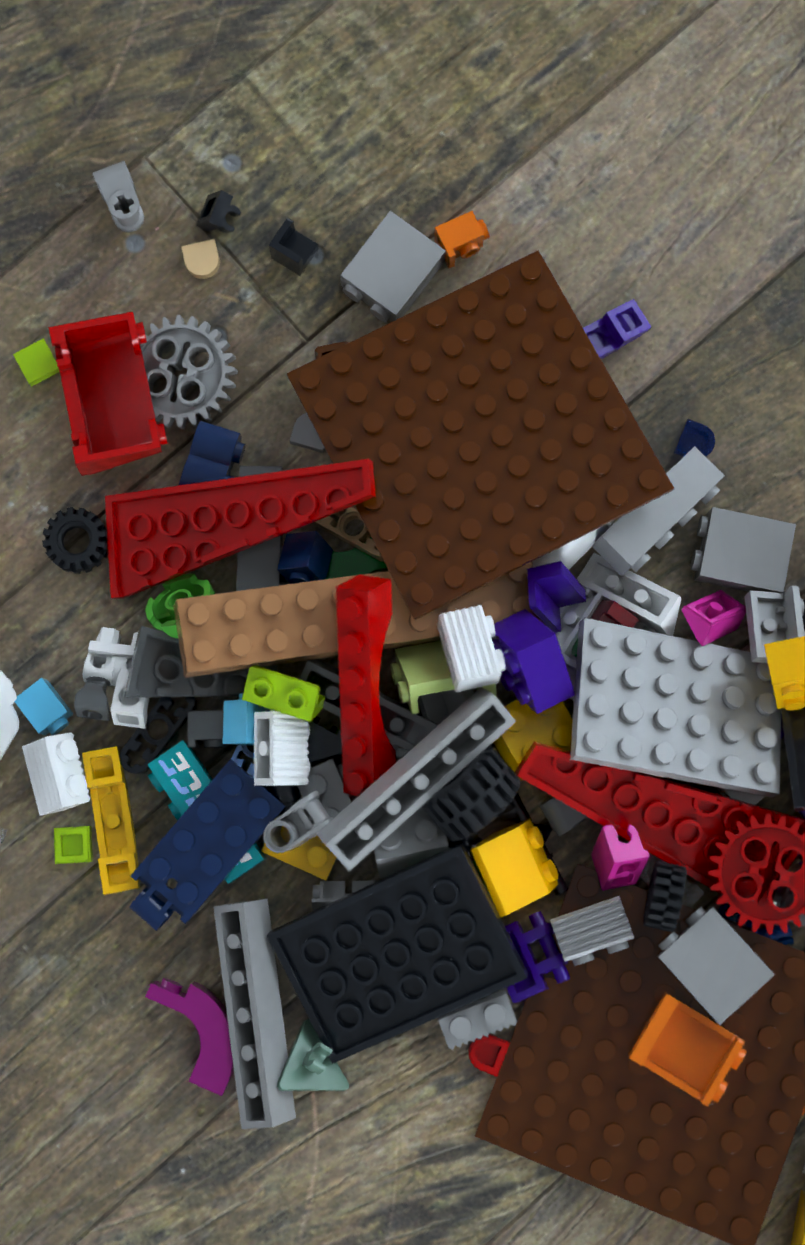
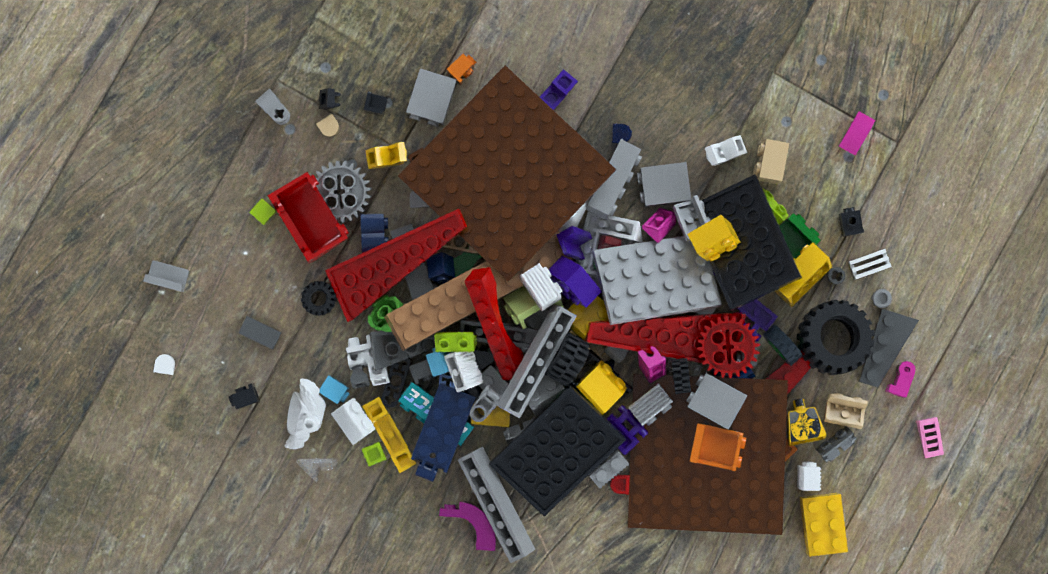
camera: 15 degrees left, 5 degrees up
(279, 339) = (386, 156): none -> yellow brick
(310, 1066) = (533, 521): sand green piece -> none

